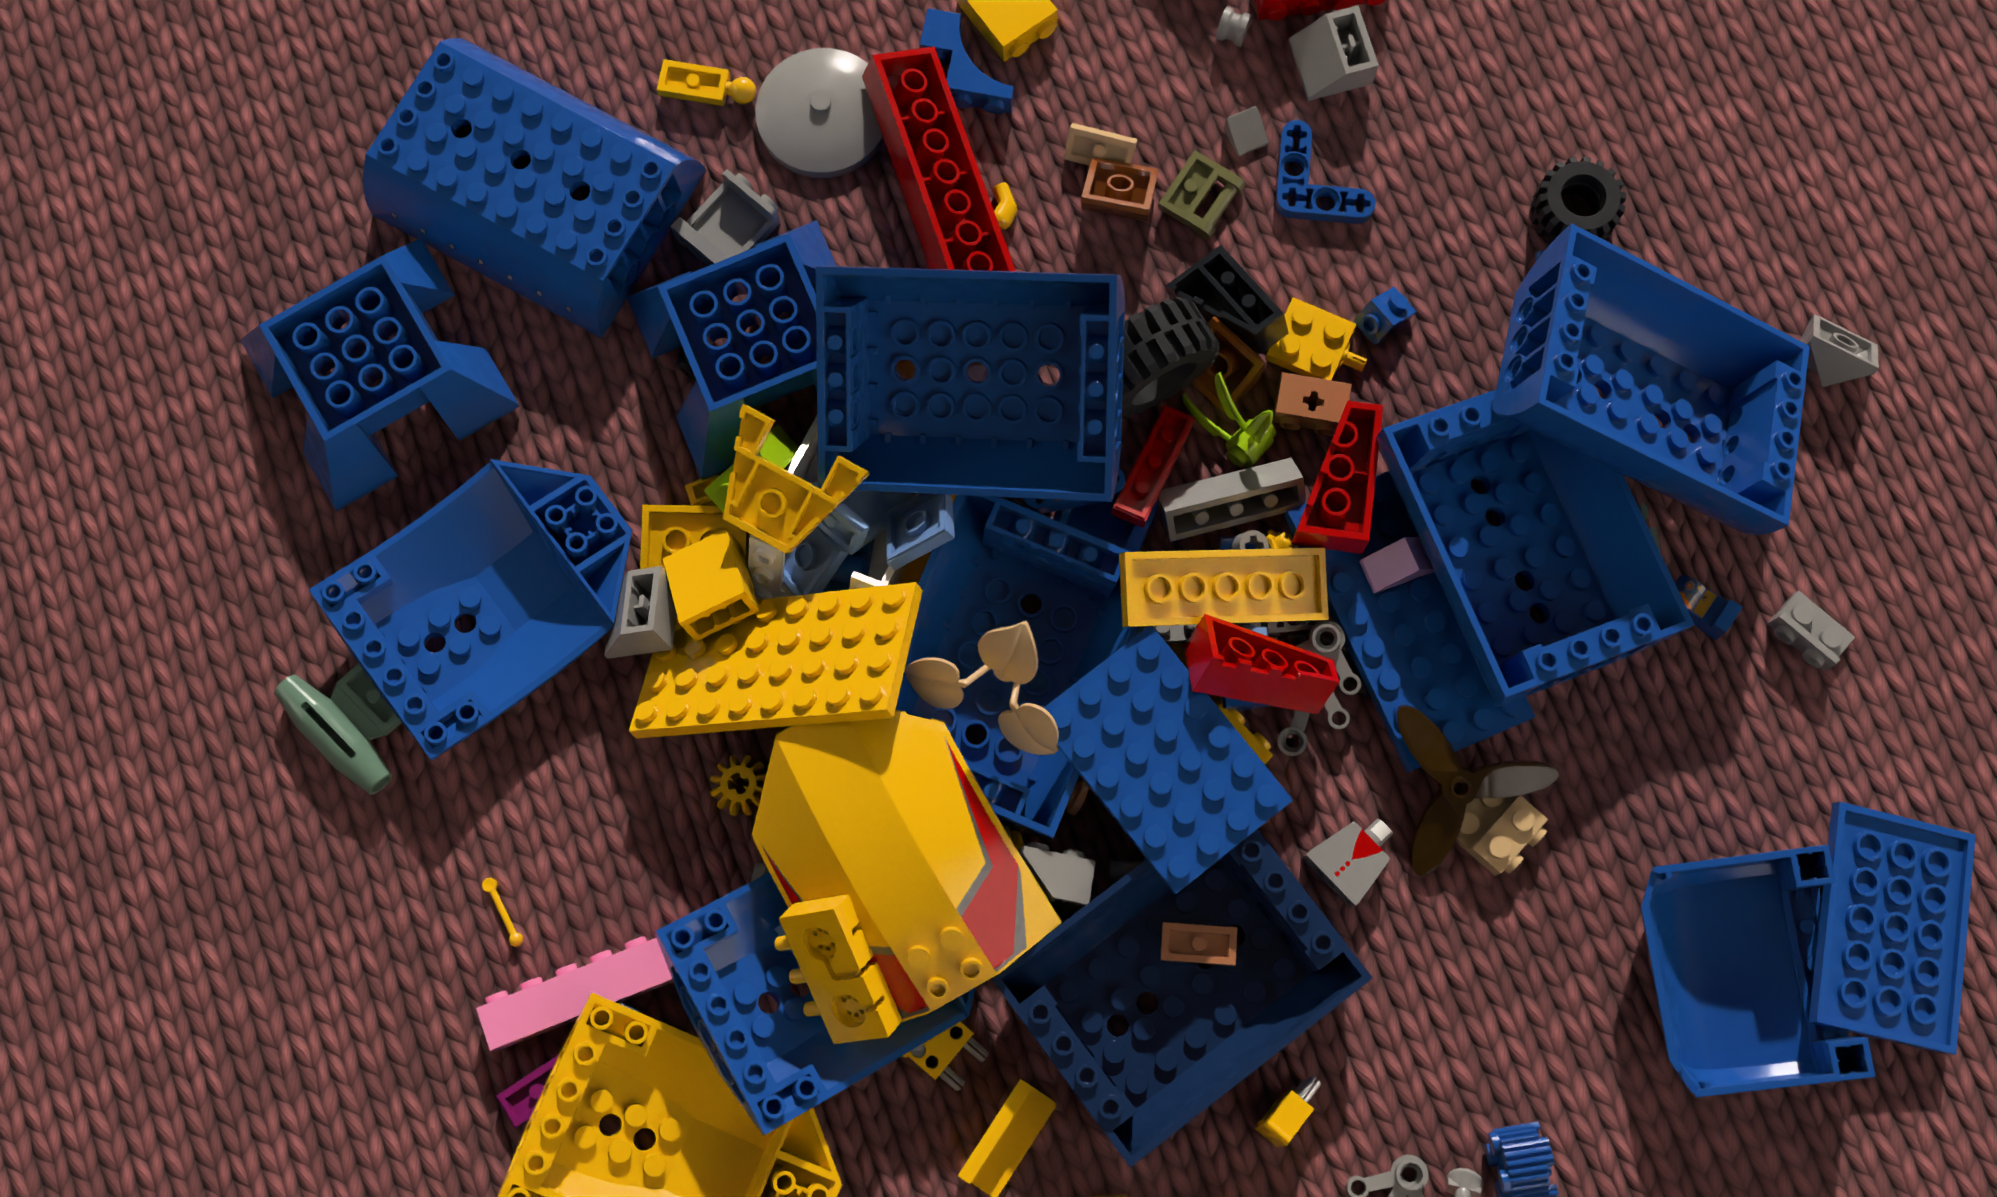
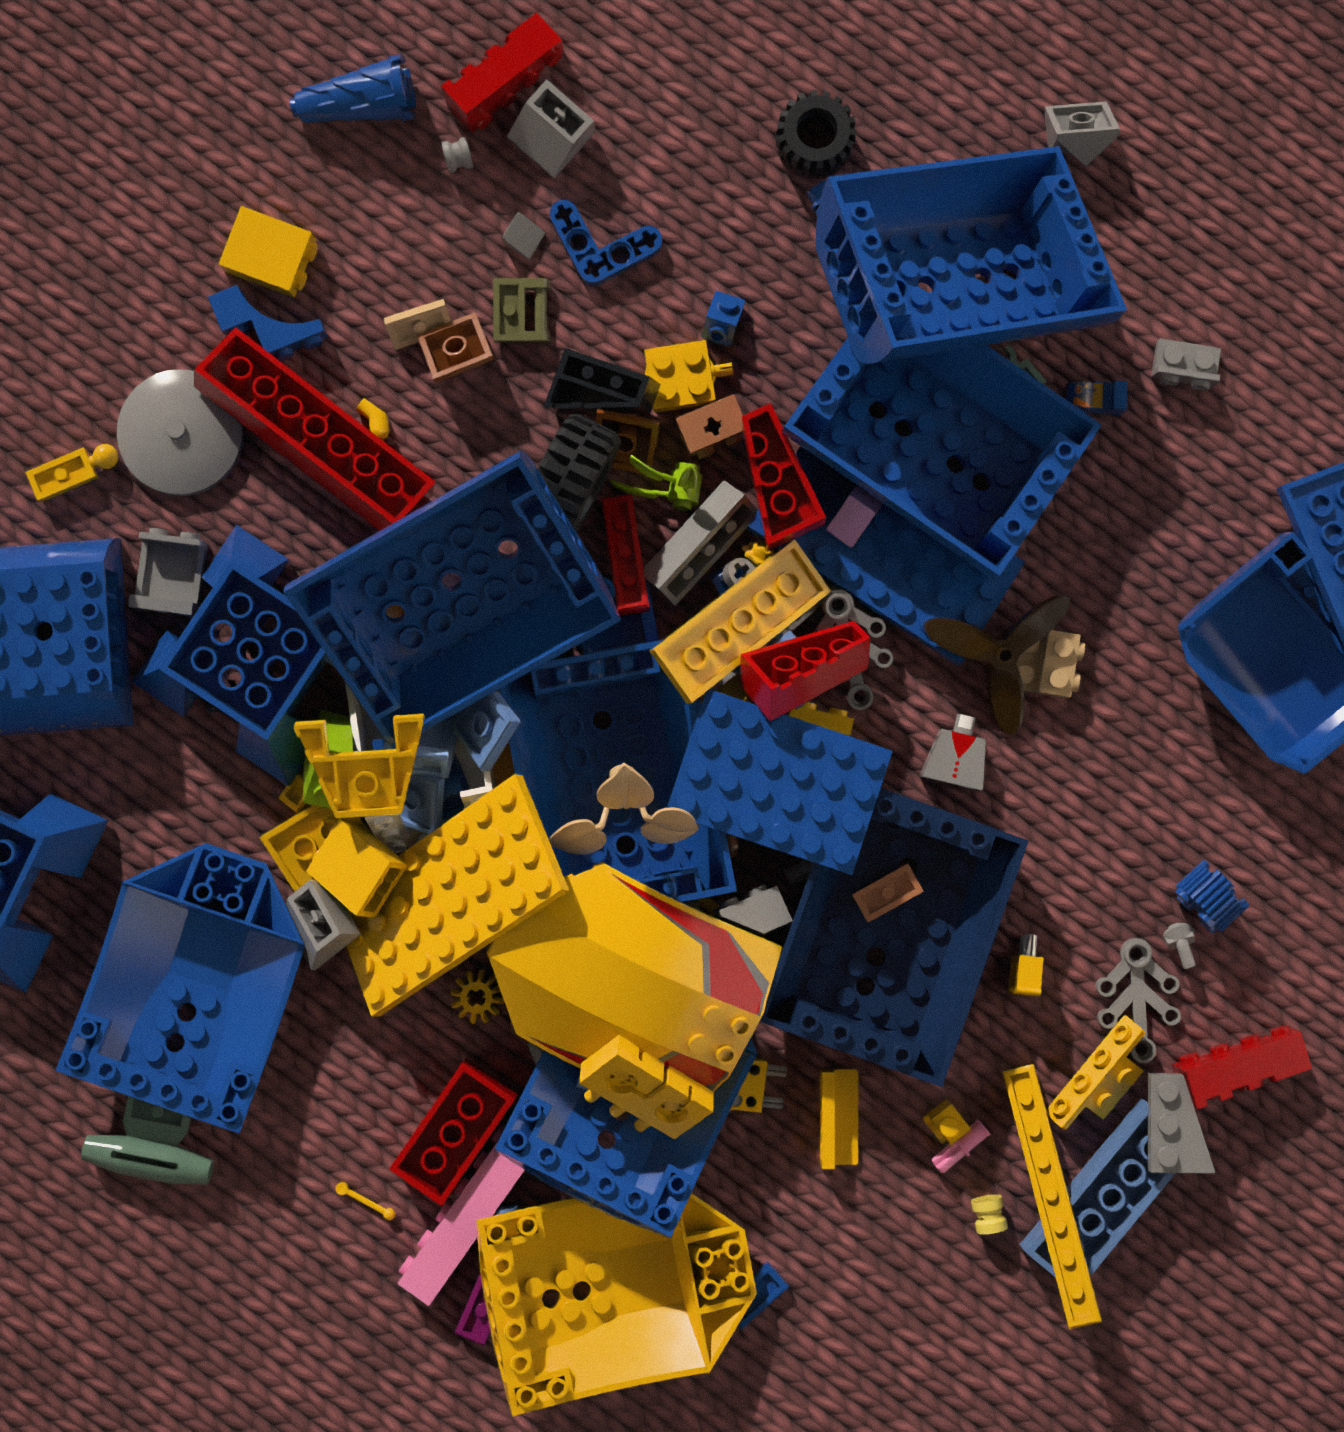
camera: 40 degrees left, 10 degrees up
(628, 897) = (453, 1131): none -> red brick

